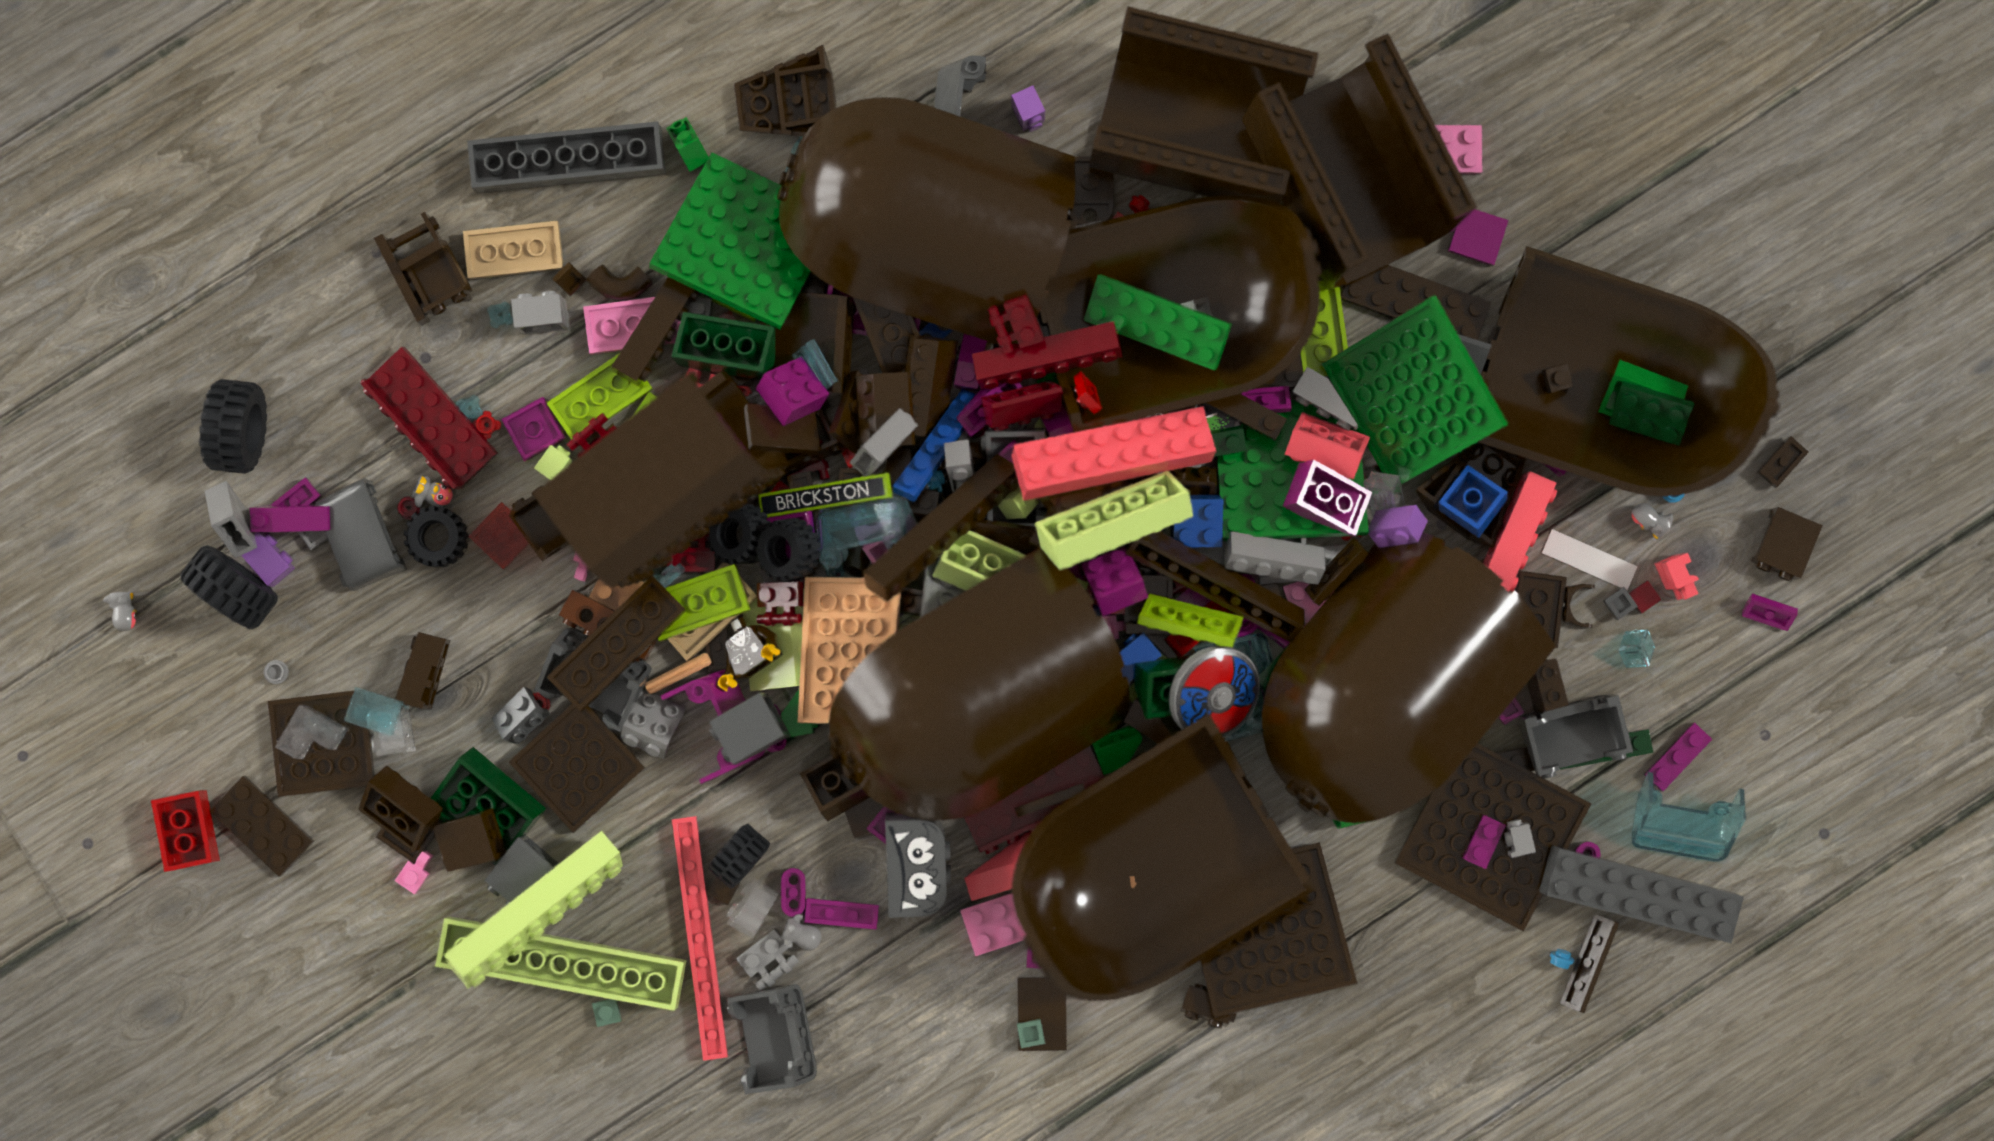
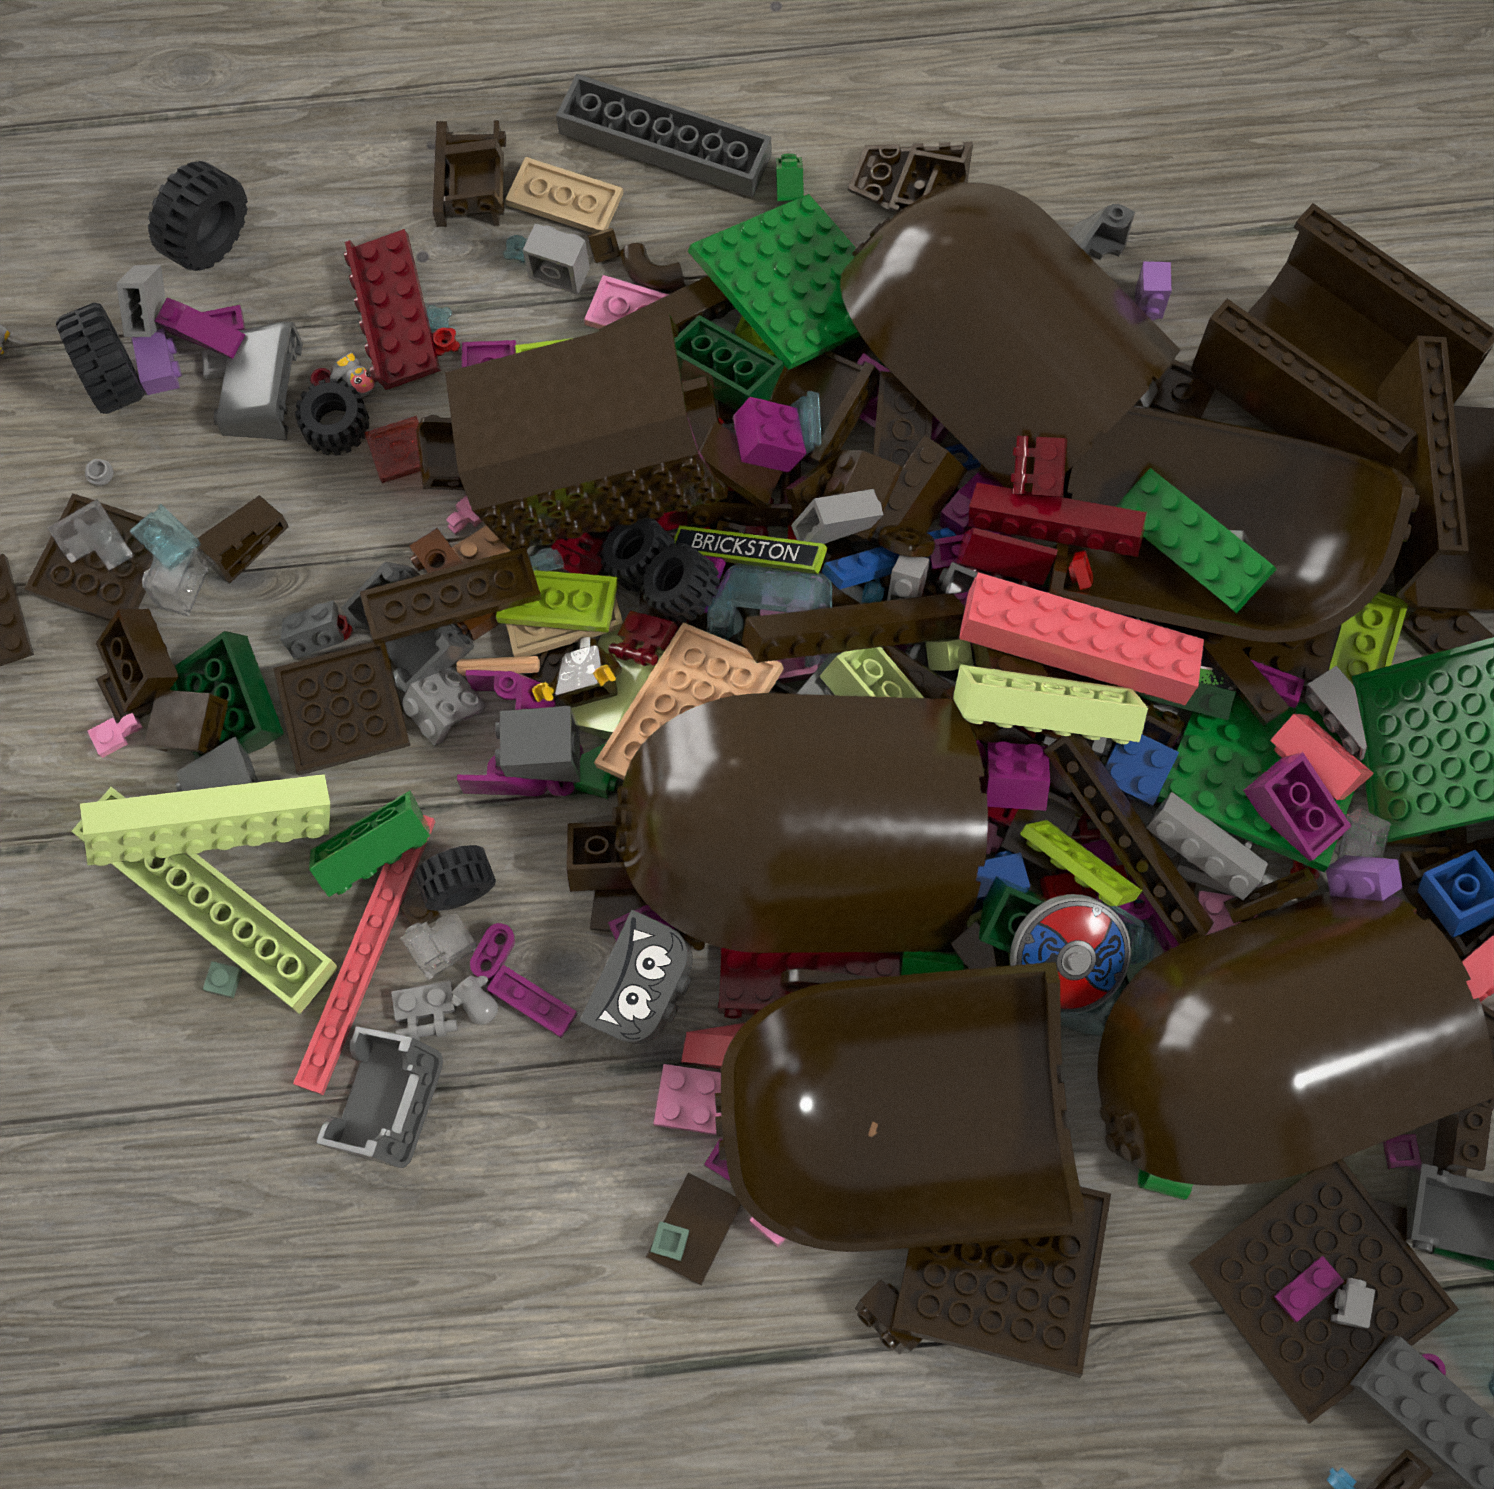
camera: 30 degrees right, 15 degrees down
(659, 861) = (369, 844): none -> green slope
(943, 431) = (907, 543): none -> dark brown tile

